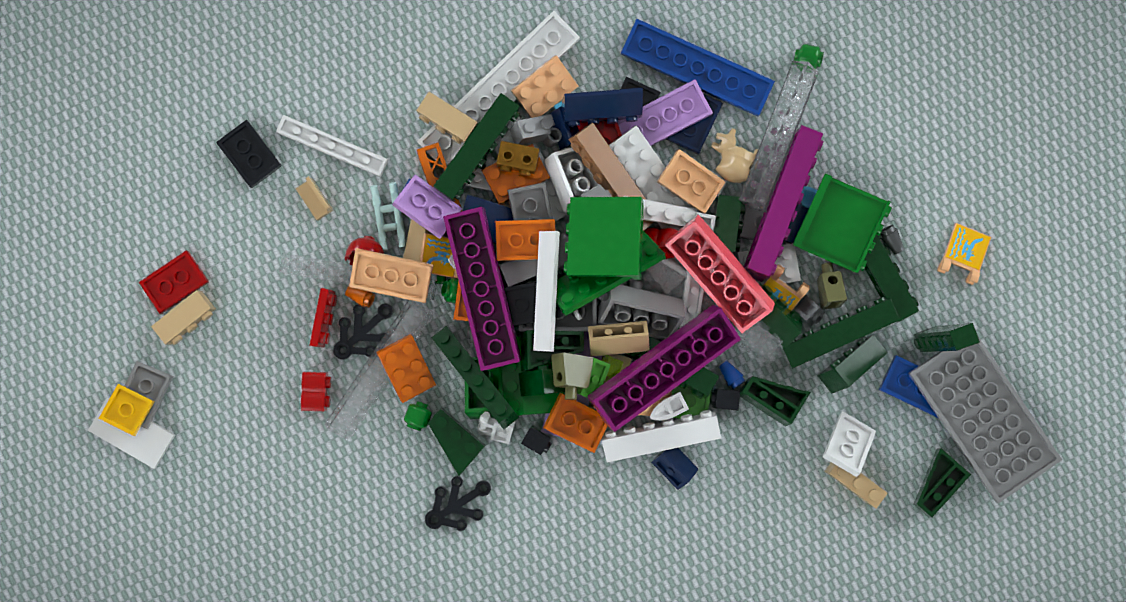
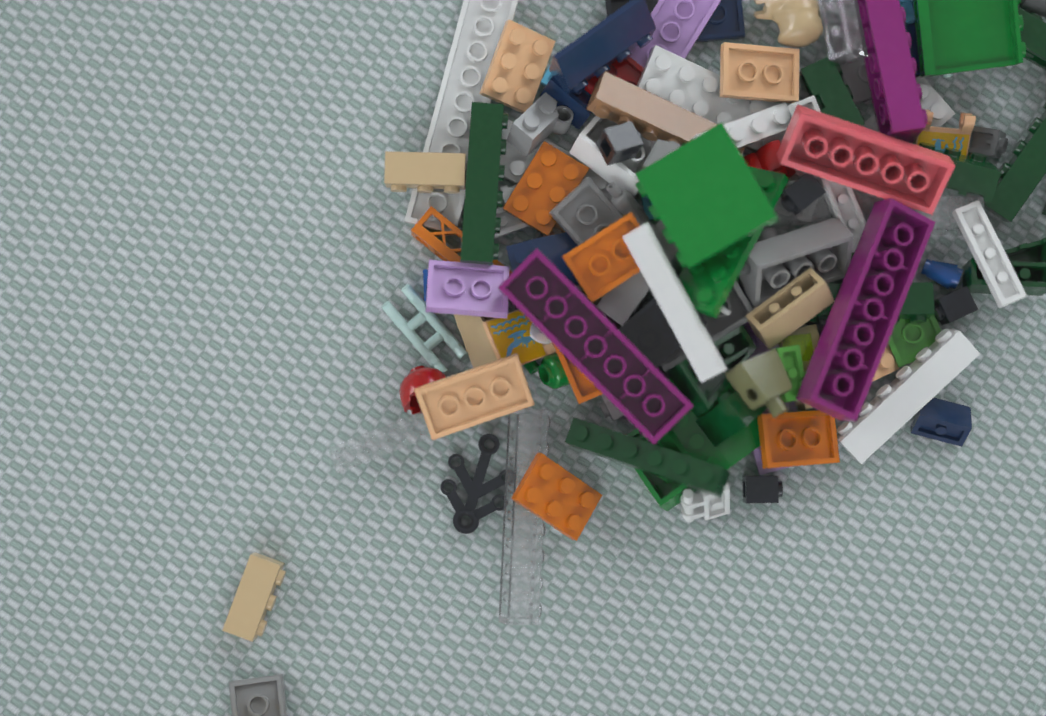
camera: 25 degrees left, 0 degrees up
(173, 282) = (215, 561): red tile -> none
(249, 154) = (213, 355): black plate -> none
(314, 199) = (323, 362): tan panel -> none
(314, 391) = (463, 589): red brick -> none
(323, 318) = (422, 496): red plate -> none
(332, 146) = (305, 286): white tile -> none
(361, 297) = (448, 445): orange cone -> none
(417, 416) = (603, 544): green head -> none
(455, 440) = (668, 546): dark green wedge -> none
(455, 506) = (711, 624): black plant -> none
(518, 158) = (540, 167): pearl gold brick -> none
(558, 213) = (626, 203): none -> light grey piece
(575, 172) = (619, 143): none -> brick
(669, 272) = (801, 194): none -> black brick
(669, 407) = (897, 354): white plate -> none
(764, 379) = (989, 254): none -> white plate
(832, 294) = (997, 100): olive torso -> none

